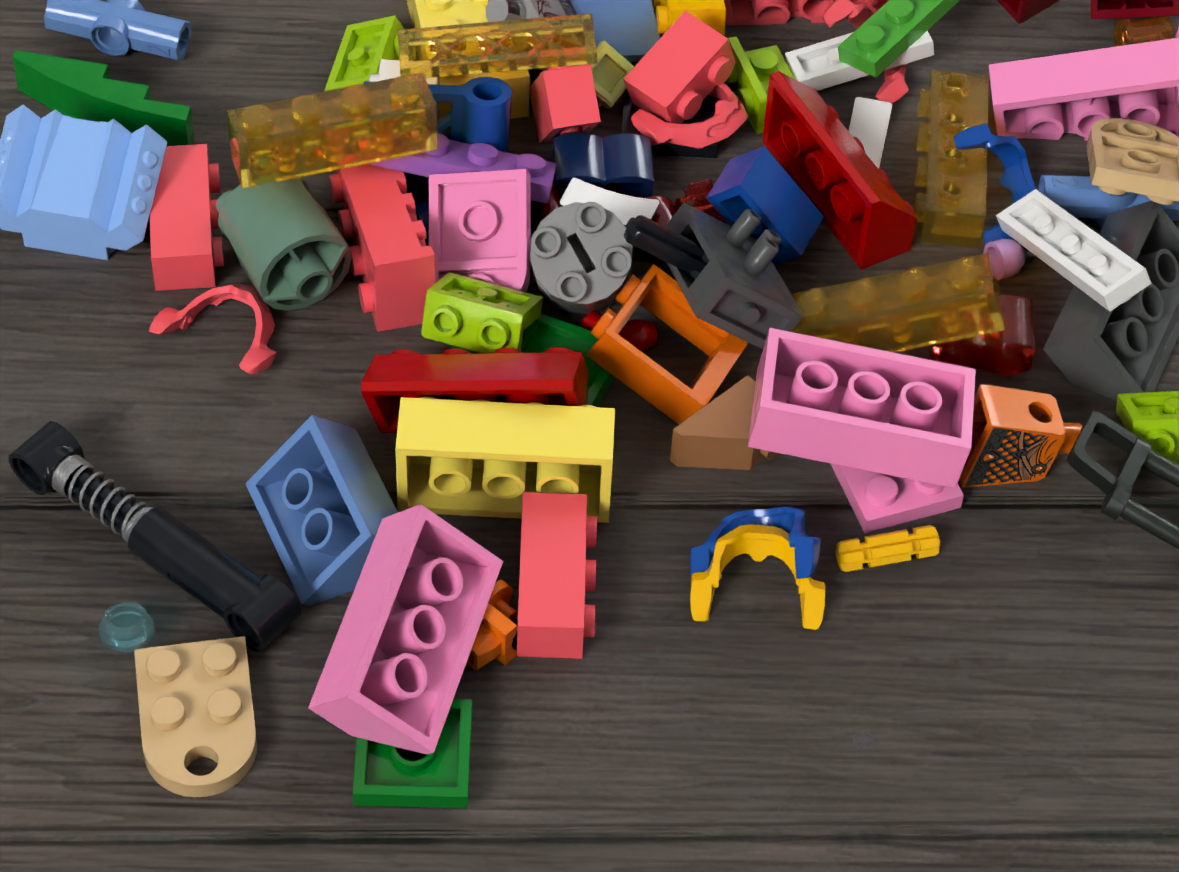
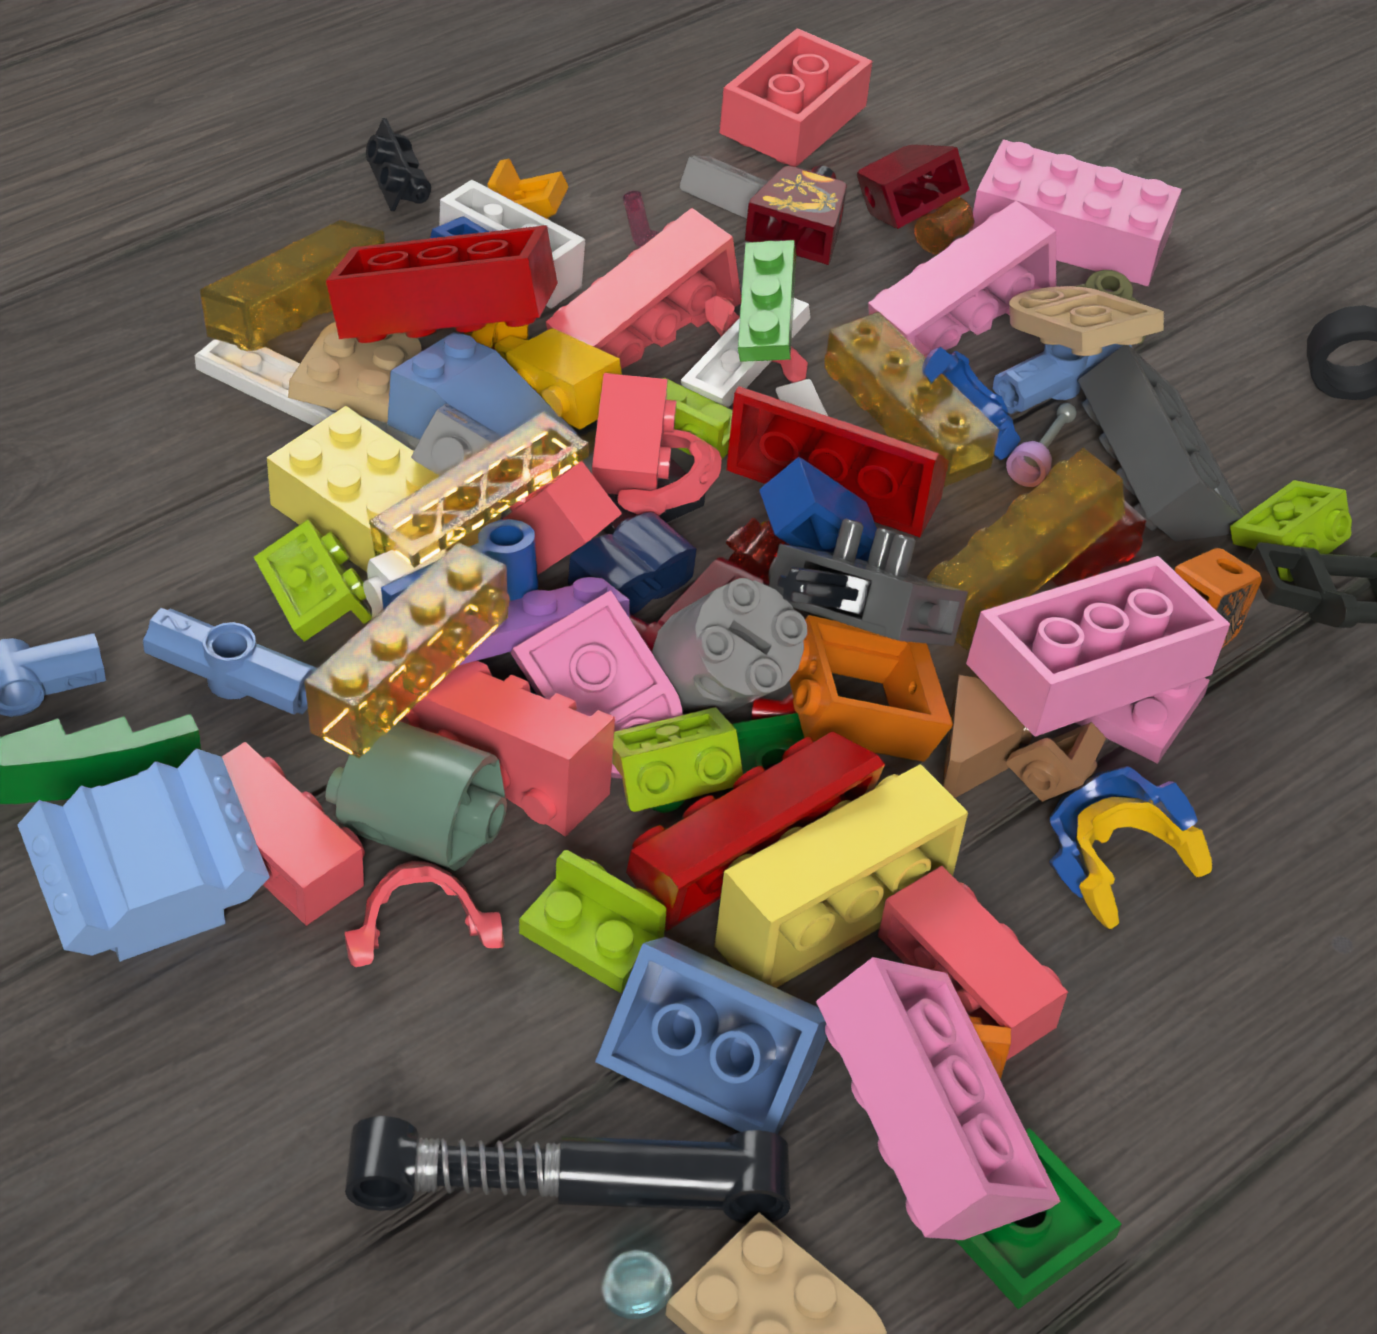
camera: 40 degrees left, 5 degrees down
(251, 68) = (228, 660): none -> medium blue piece
(329, 387) = (593, 920): none -> lime bracket
(621, 205) = (682, 590): white sticker -> none
(779, 488) = (1058, 763): none -> medium nougat bracket
(887, 548) = (1201, 757): yellow axle -> none
(1073, 250) = (1107, 418): white plate -> none

